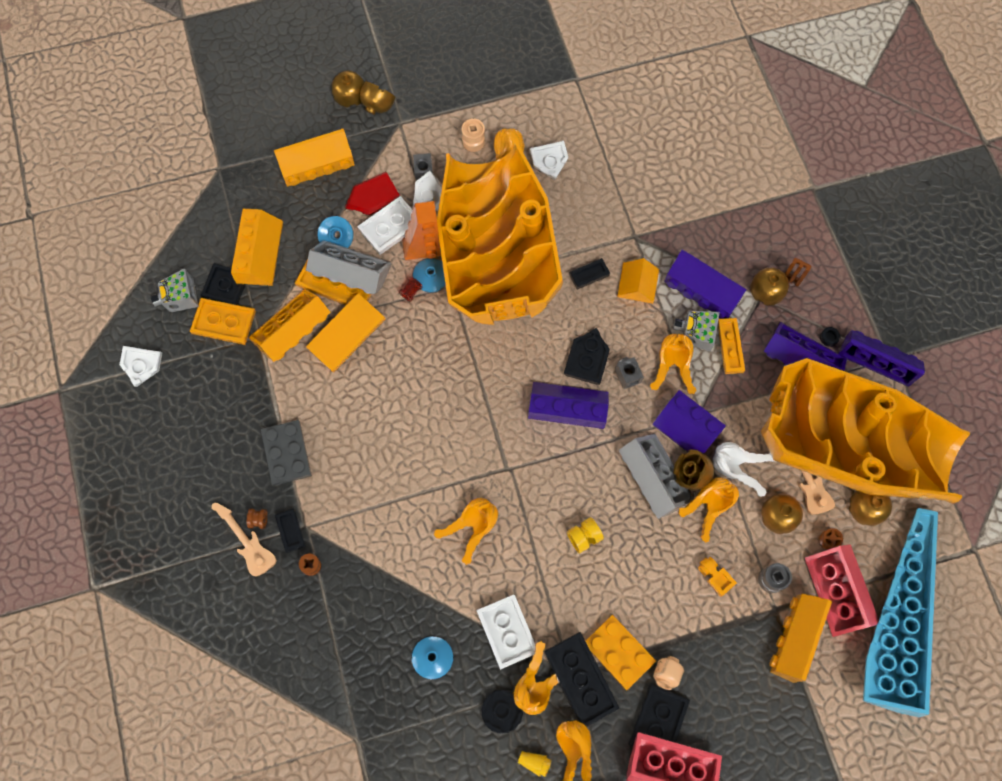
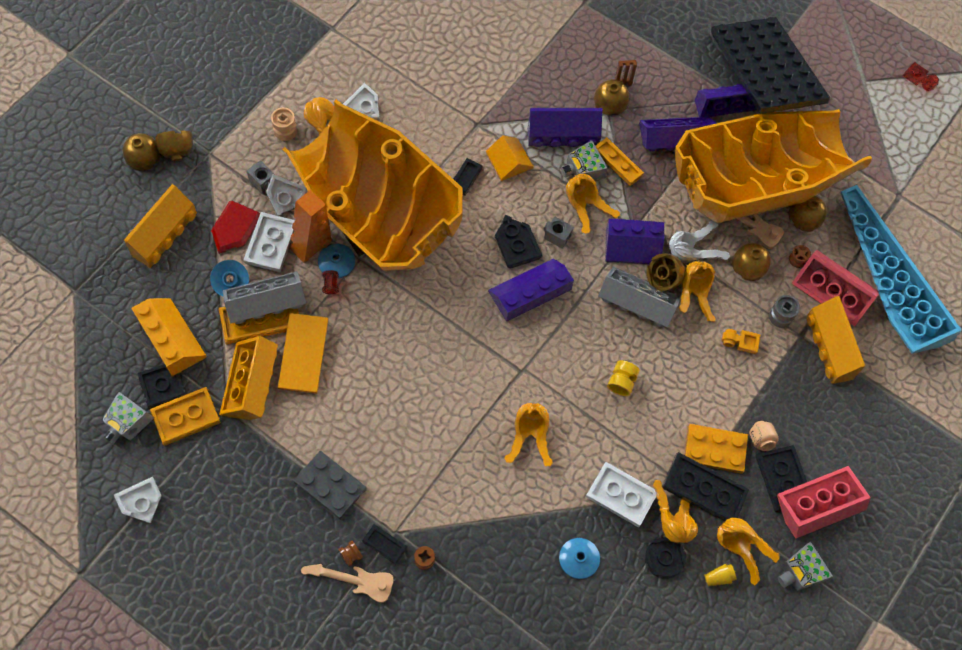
camera: 40 degrees left, 5 degrees down
(829, 336) = (684, 107): black tile -> none
(937, 350) = (769, 65): none -> black plate

